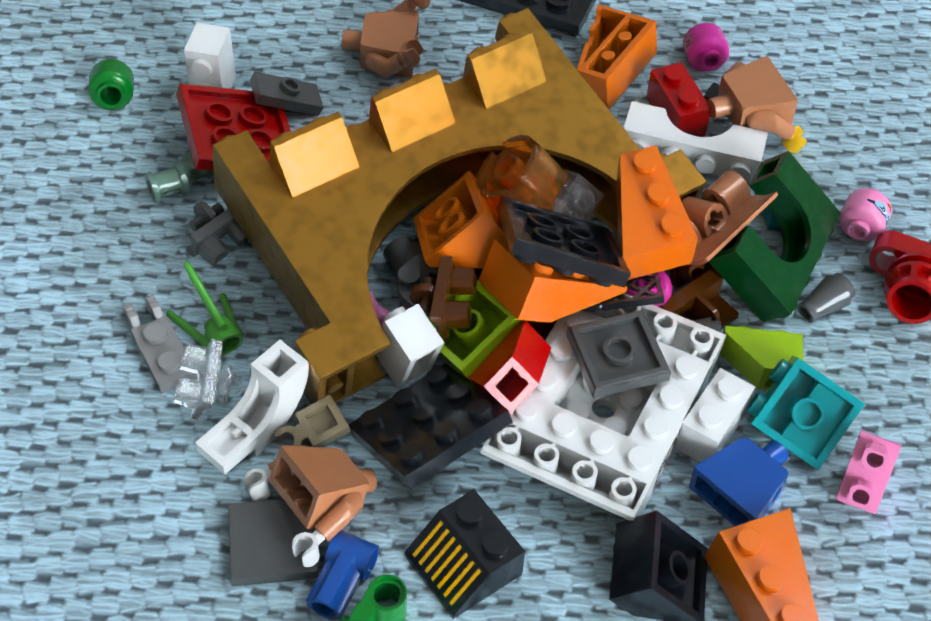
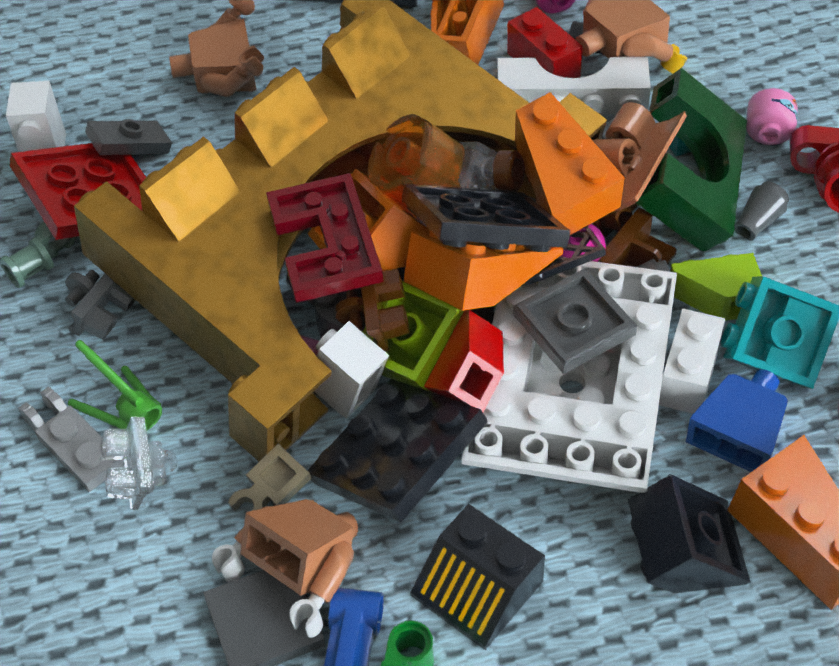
camera: 10 degrees left, 0 degrees up
(267, 404) = (213, 473): white arch -> none
(435, 245) = (349, 253): none -> dark red plate
(600, 206) = (508, 170): none -> reddish brown tile

